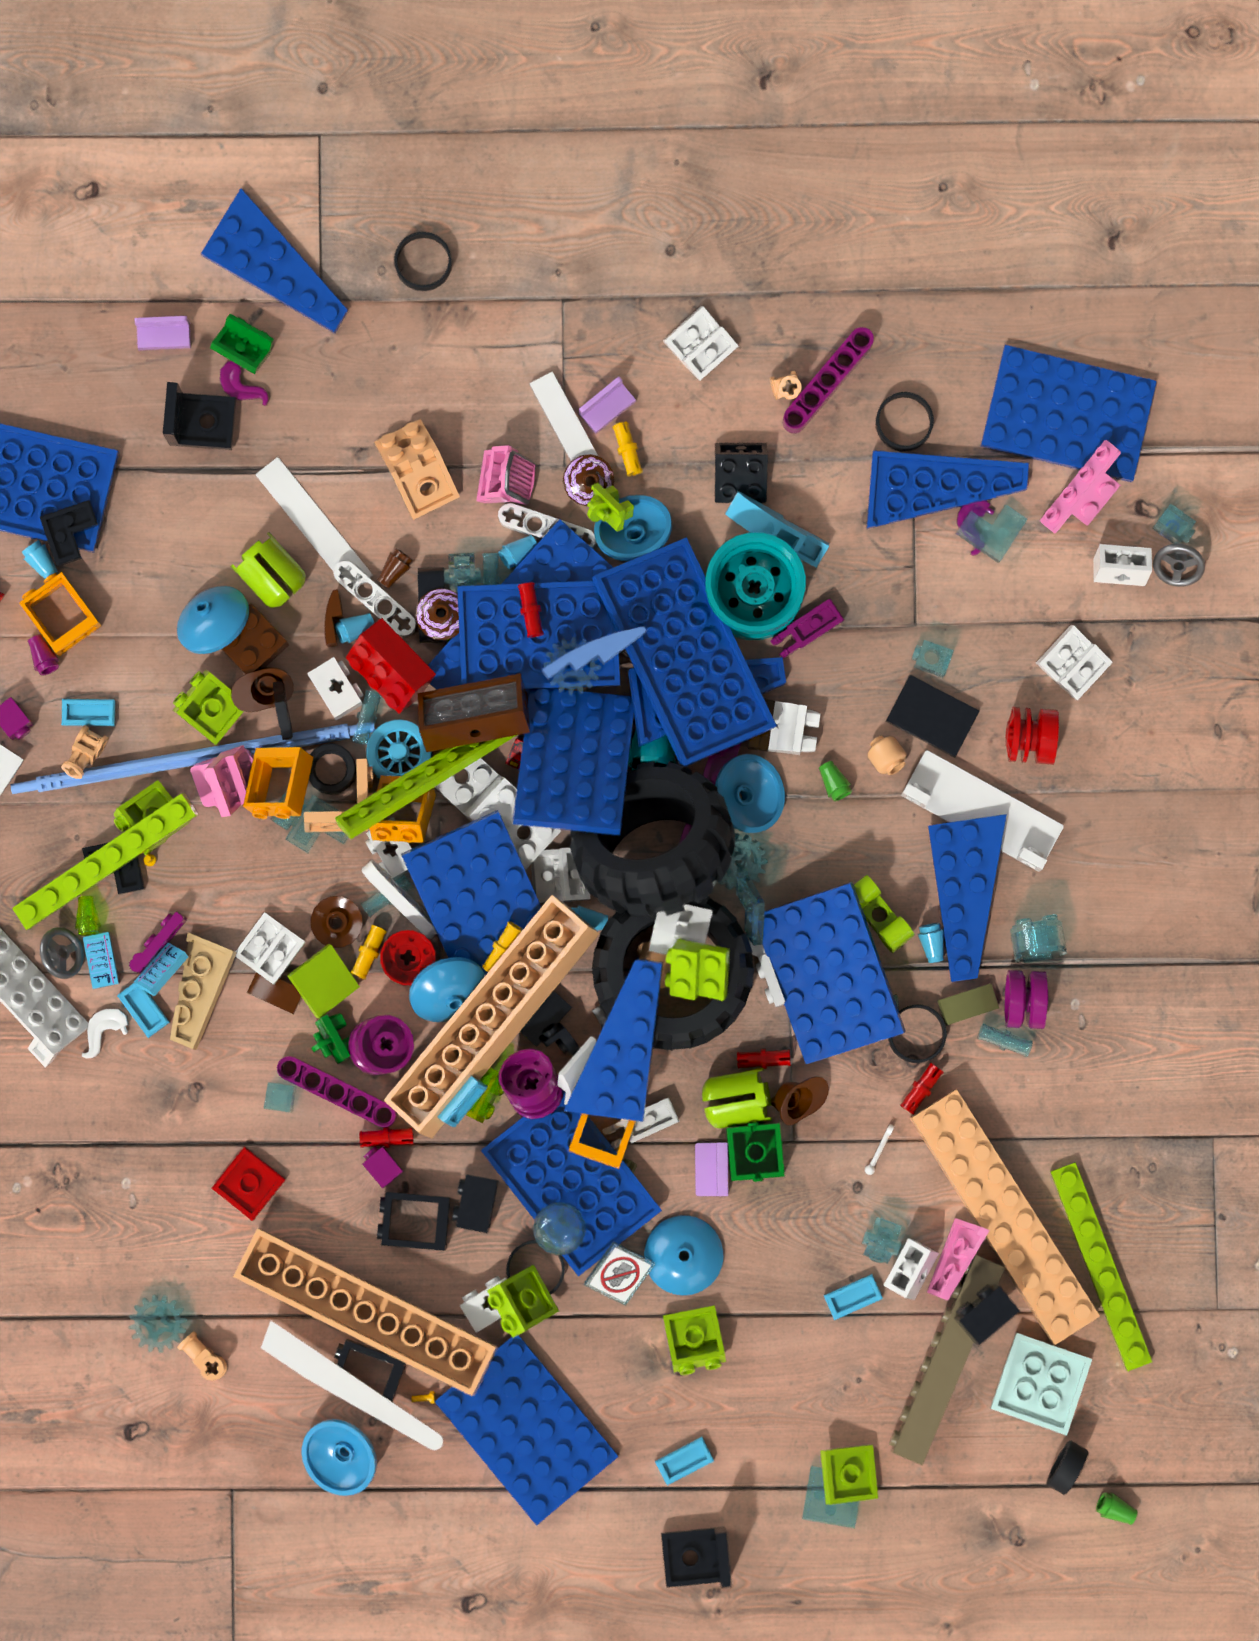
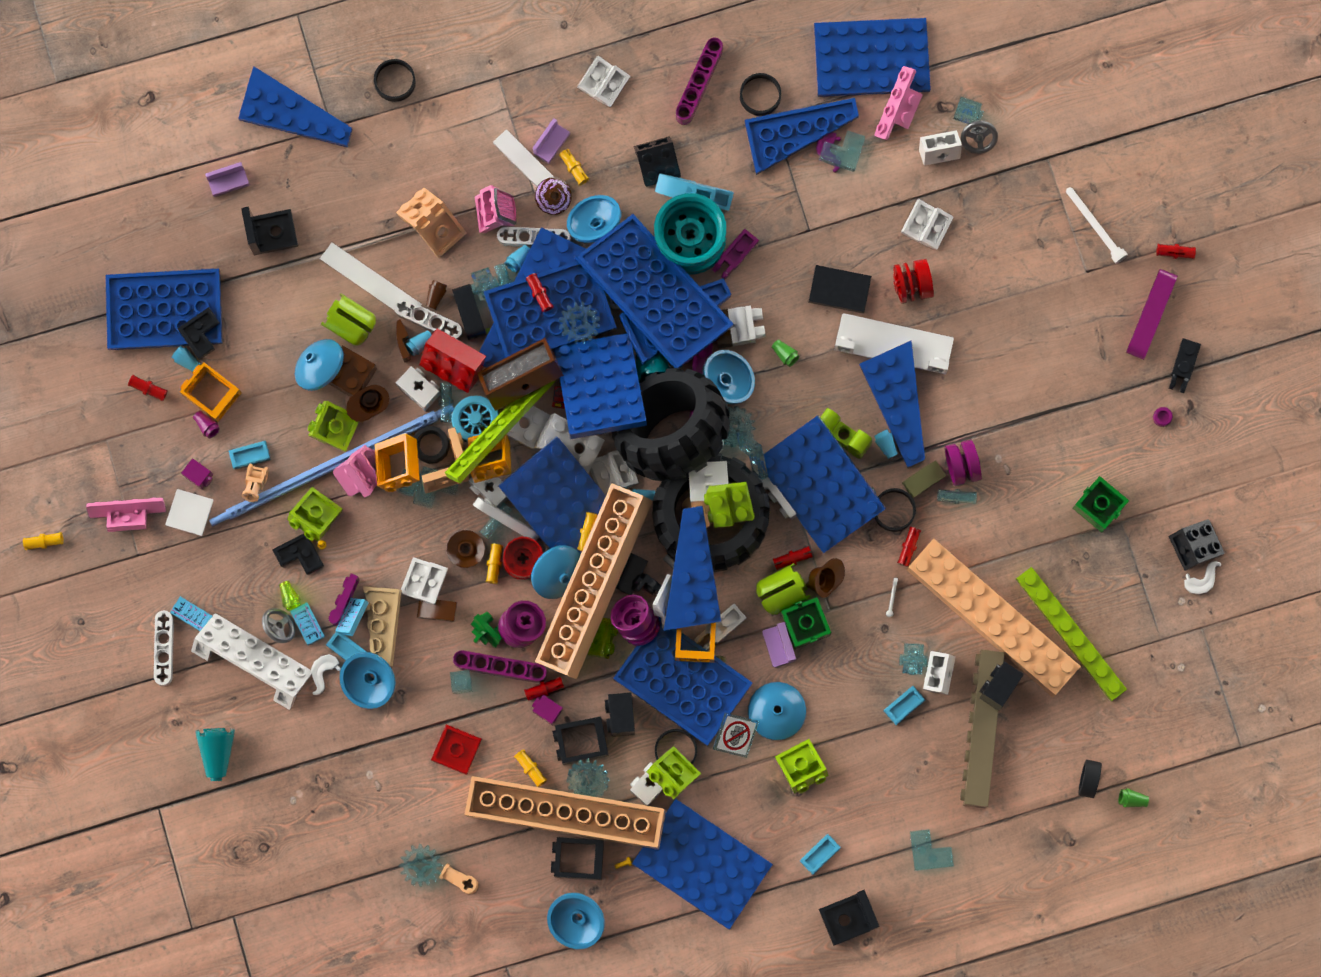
camera: 10 degrees left, 5 degrees down
(105, 861) = (291, 552): lime plate -> none
(149, 1067) = (360, 686): none -> dark azure dish
(232, 386) = (286, 202): magenta piece -> none
(243, 343) = (285, 171): green bracket -> none
(282, 710) = (388, 417): black tile -> none
(323, 981) = (468, 592): lime tile -> none
(338, 1237) = (530, 768): none -> yellow pin
(342, 1384) = (563, 868): white sticker -> none
(408, 1275) = (595, 776): none -> clear light blue gear
(430, 624) = (474, 324): dish -> none
(462, 1101) = (590, 645): medium azure tile -> none
(559, 1228) = (684, 715): clear light blue cylinder -> none
(603, 648) = (597, 303): medium blue slope -> none
(606, 507) = (571, 209): lime hips -> none
(786, 386) = (673, 91): light nougat connector -> none
(849, 1474) = (938, 828): lime plate -> none
(887, 755) = (816, 324): light nougat head -> none
(944, 656) = (834, 243): clear light blue brick -> none
(956, 1256) = (967, 657): bright pink wing -> none
(1037, 939) = (959, 419): clear light blue brick -> none
(1041, 1383) = (1054, 727): light aqua plate -> none
(1191, 1107) = (1100, 504): none -> green brick

